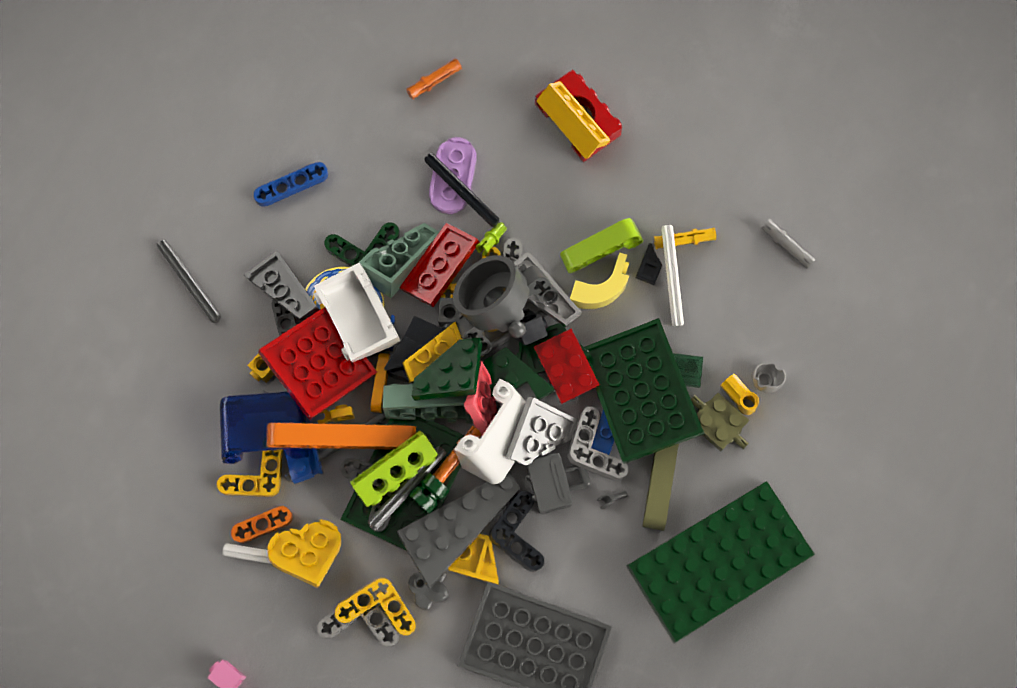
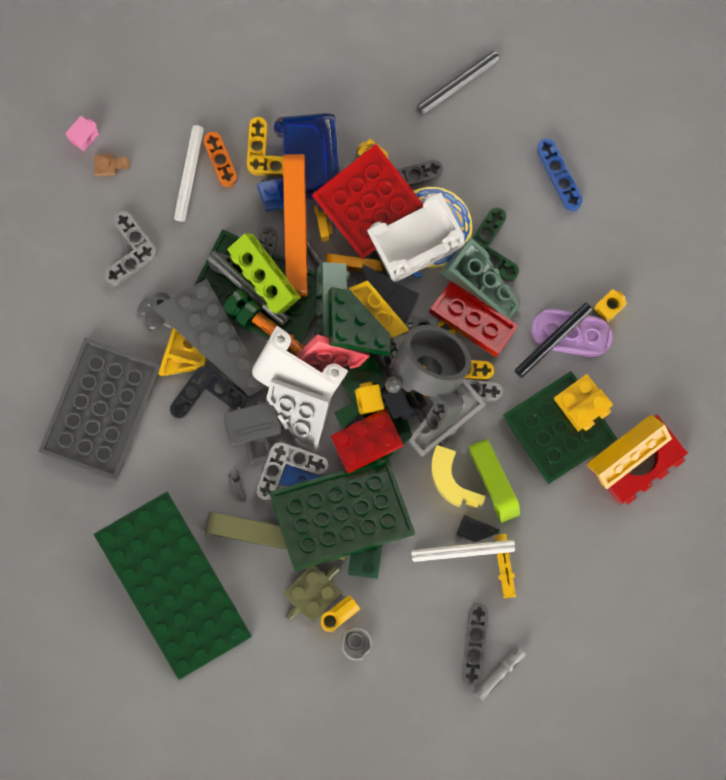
camera: 90 degrees right, 5 degrees up
(262, 650) = (107, 164): none -> medium nougat plate
(282, 285) = (453, 167): wing -> none
(306, 551) = (191, 198): yellow plate -> none
(383, 599) = (146, 269): yellow beam -> none
(426, 83) = (672, 306): orange pin -> none
(426, 145) = (607, 313): none -> yellow brick
(491, 238) = (501, 369): lime axle -> none
(525, 161) = (583, 403): none -> yellow plate
(525, 362) = (369, 398): none -> yellow brick
(547, 186) = (550, 435): none -> dark green plate
(761, 263) = (475, 644): none -> dark grey beam

